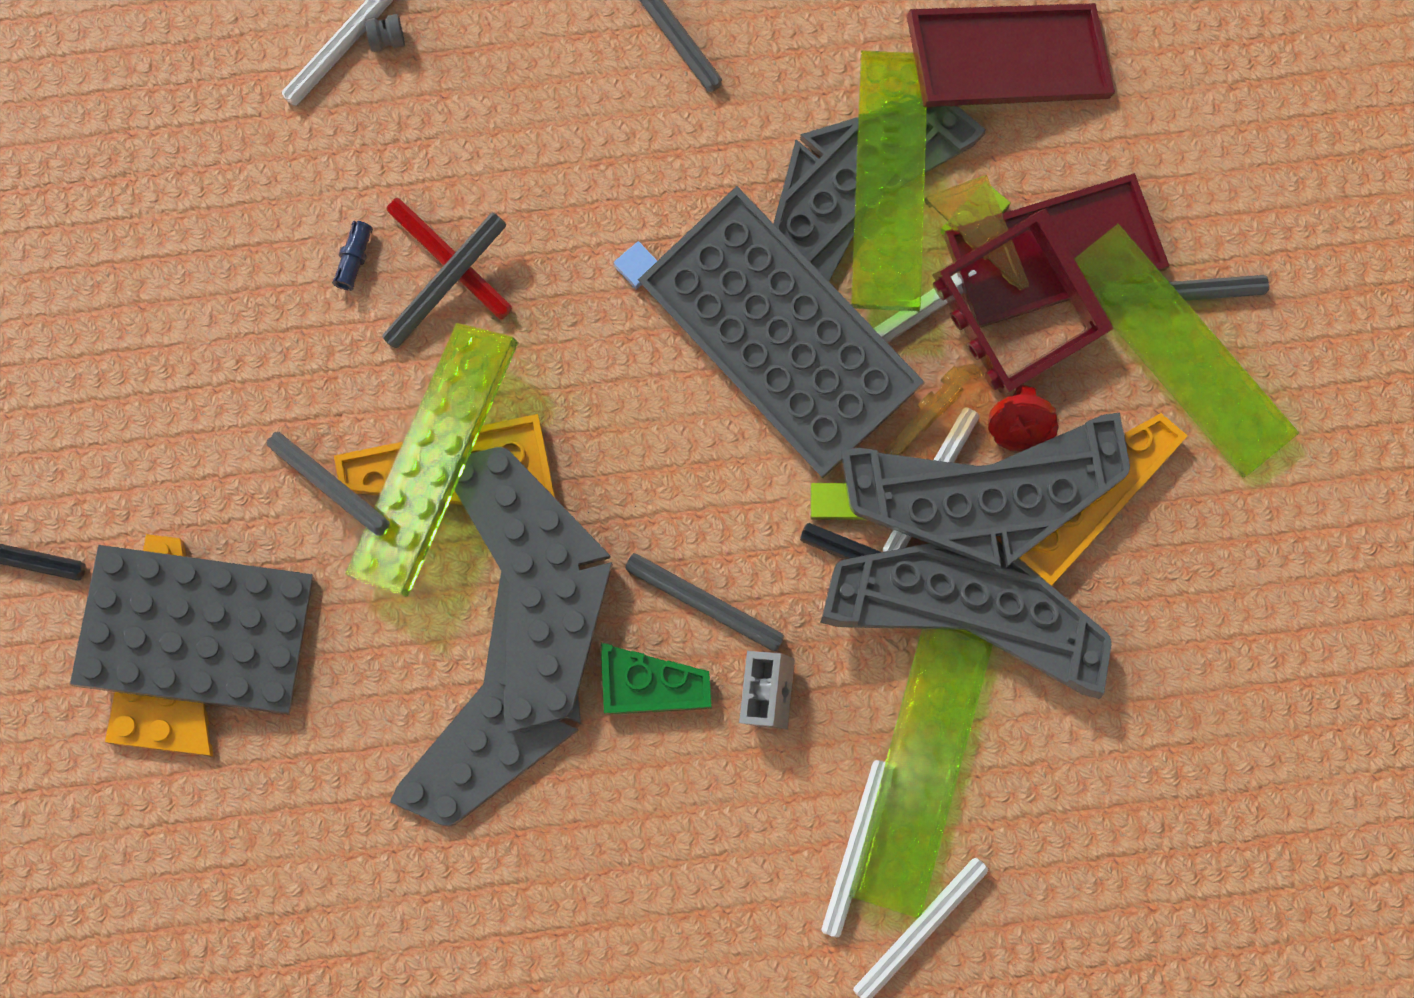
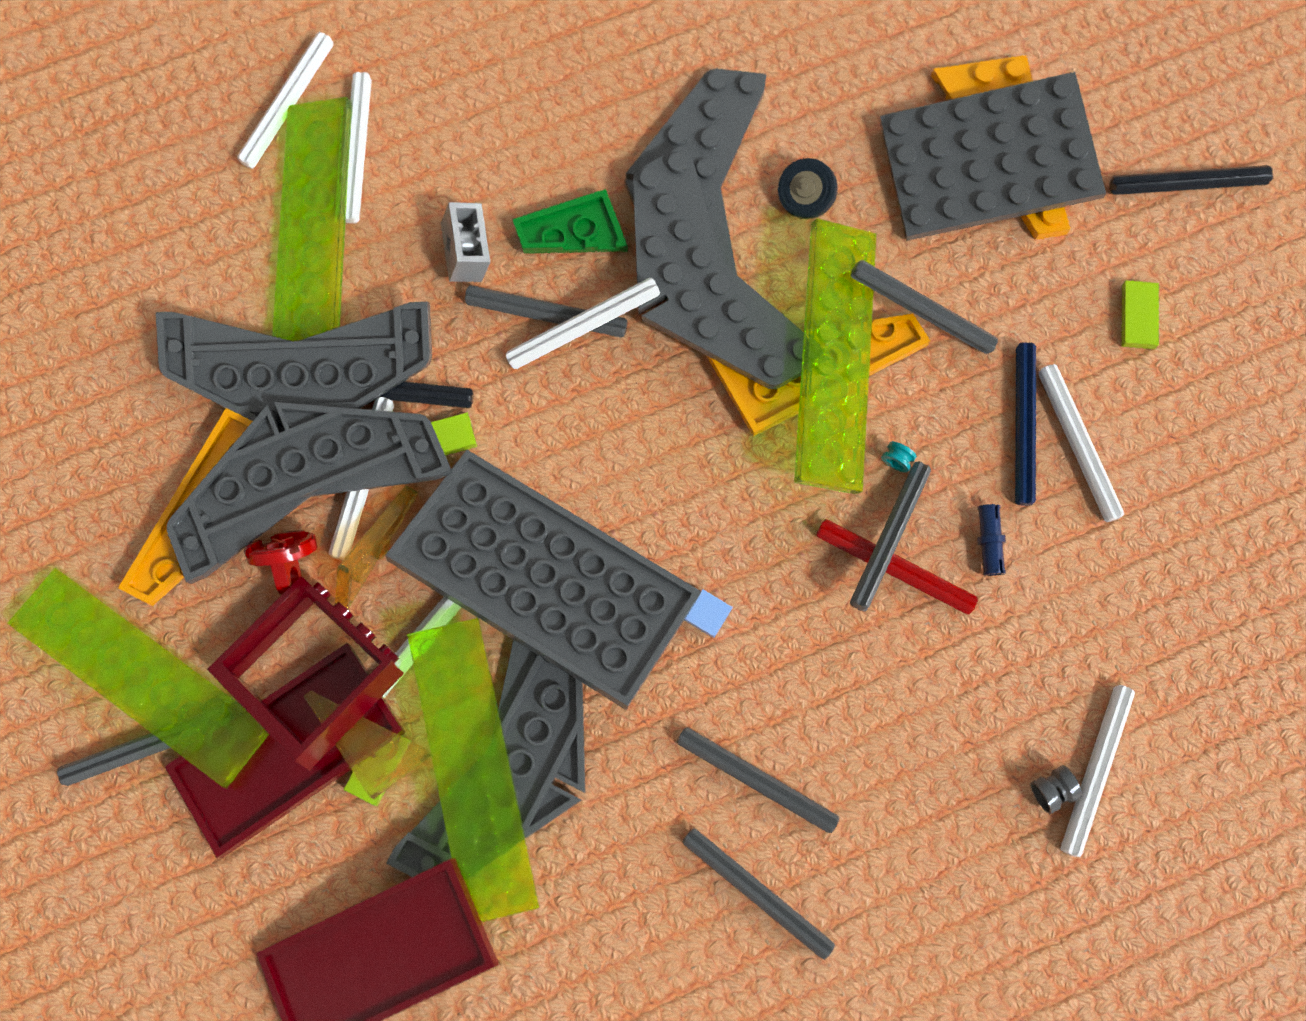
camera: 160 degrees right, 0 degrees up
(116, 430) = (1140, 314): none -> lime tile
(230, 323) = (1081, 443): none -> white axle
(274, 356) = (1025, 425): none -> dark blue axle
(394, 652) = (807, 188): none -> black wheel
(408, 354) = (899, 456): none -> teal bush
(640, 114) = (758, 780): none -> dark grey axle
(670, 567) = (582, 323): none -> white axle

